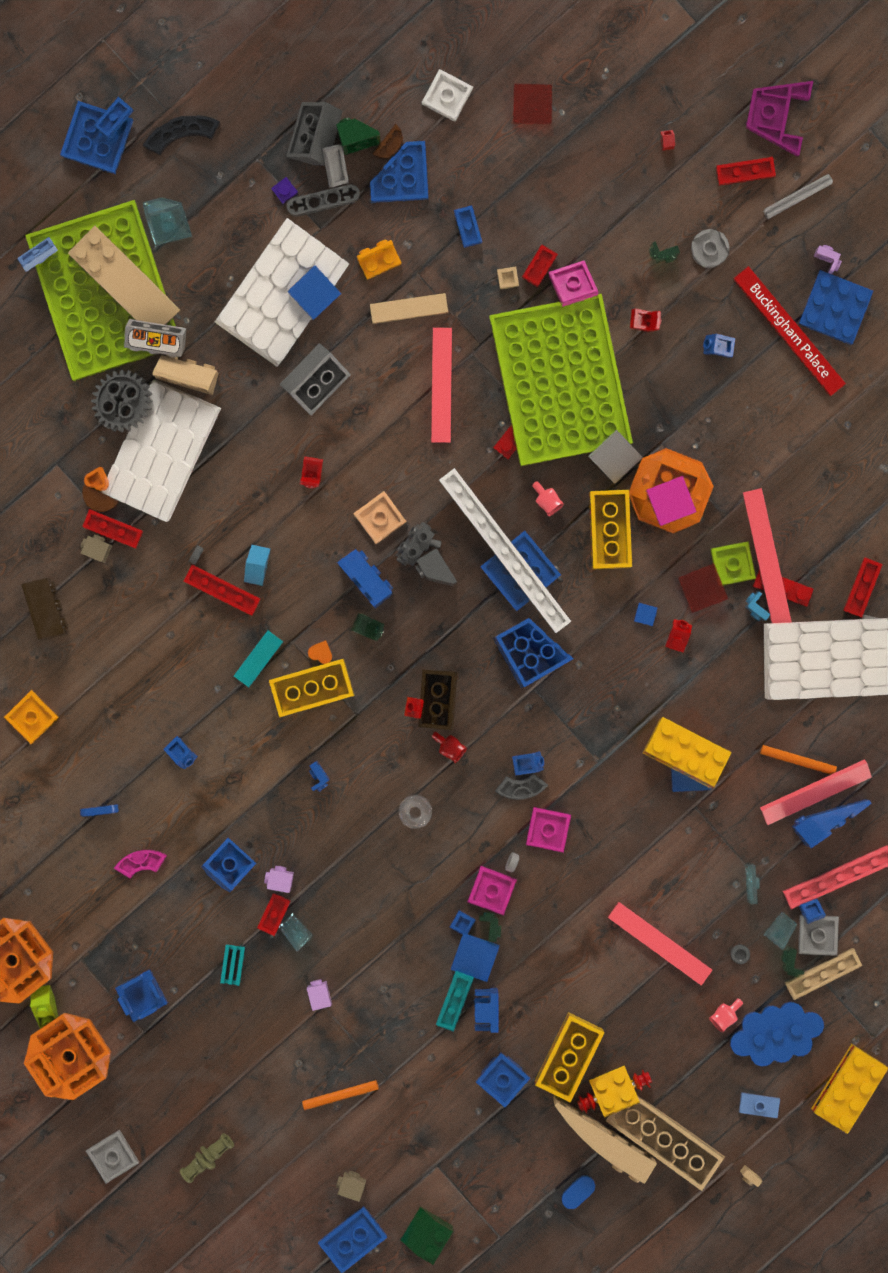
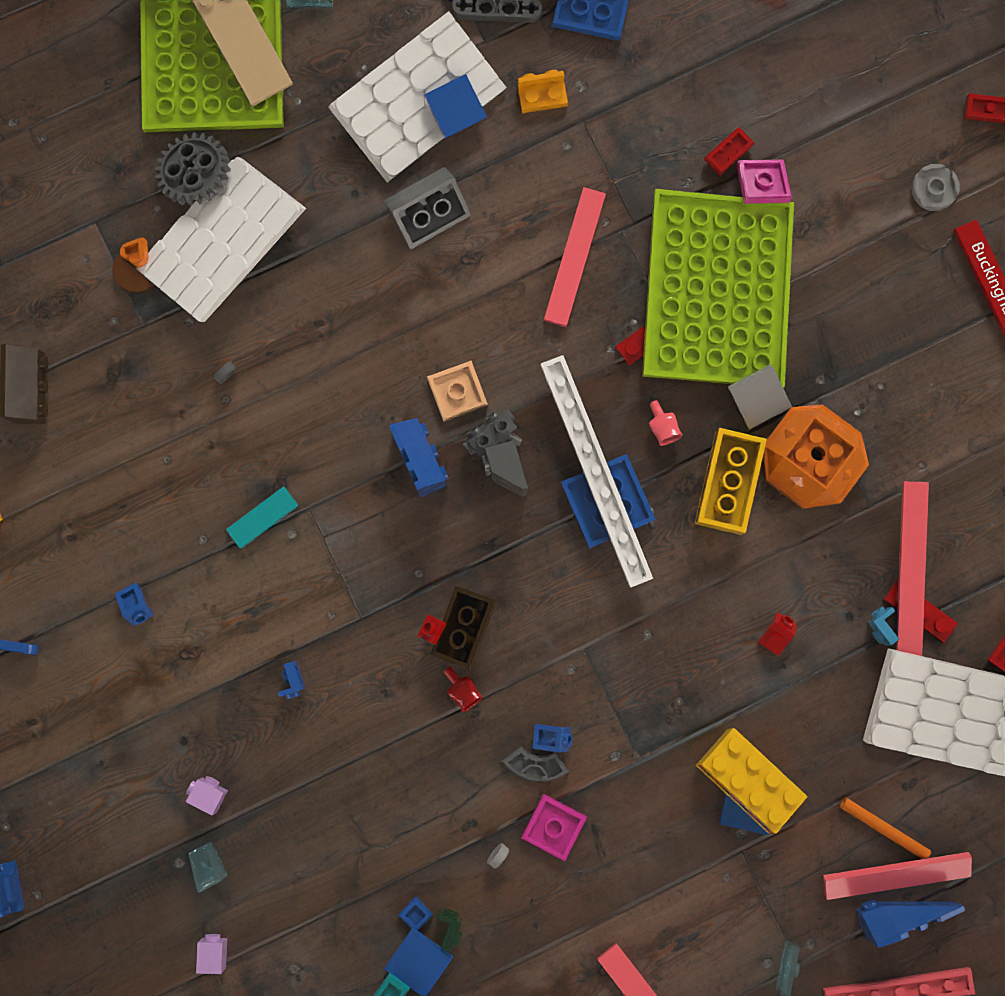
camera: 15 degrees right, 5 degrees down
(95, 548) = (108, 331): dark tan brick -> none
(112, 528) = (136, 314): red plate -> none
(140, 861) = (44, 722): dark pink tile -> none
(155, 338) = (252, 105): brick -> none
(186, 374) = (276, 158): tan slope -> none
(222, 590) = (243, 423): red plate -> none
(228, 865) = (148, 759): blue slope -> none
(230, 981) = (108, 903): teal tile -> none
(256, 565) = (293, 405): dark azure slope -> none
(274, 914) = (186, 836): red plate -> none
(311, 472) = (391, 314): red bracket -> none
(311, 687) = (314, 570): yellow brick -> none
(320, 652) = (340, 531): orange tile -> none
(368, 627) = (404, 516): clear green bracket -> none
(409, 308) = (561, 158): tan tile -> none
(422, 803) = (406, 749): clear gear -> none
(468, 226) = (657, 83): blue plate -> none
(492, 890) = (463, 883): dark pink tile -> none
(507, 278) = (688, 154): tan plate -> none
(530, 652) = (592, 602): blue wedge -> none
(645, 320) = (837, 247): red bracket -> none
(645, 614) = (744, 596): blue tile -> none
(667, 140) = (918, 50): red piece -> none
(667, 255) = (880, 179): clear green bracket -> none
(671, 501) = (815, 466): dark pink tile -> none
(703, 588) = (823, 584): clear red tile -> none
(719, 345) = (918, 301): blue bracket -> none
(734, 563) = (866, 565): lime tile -> none

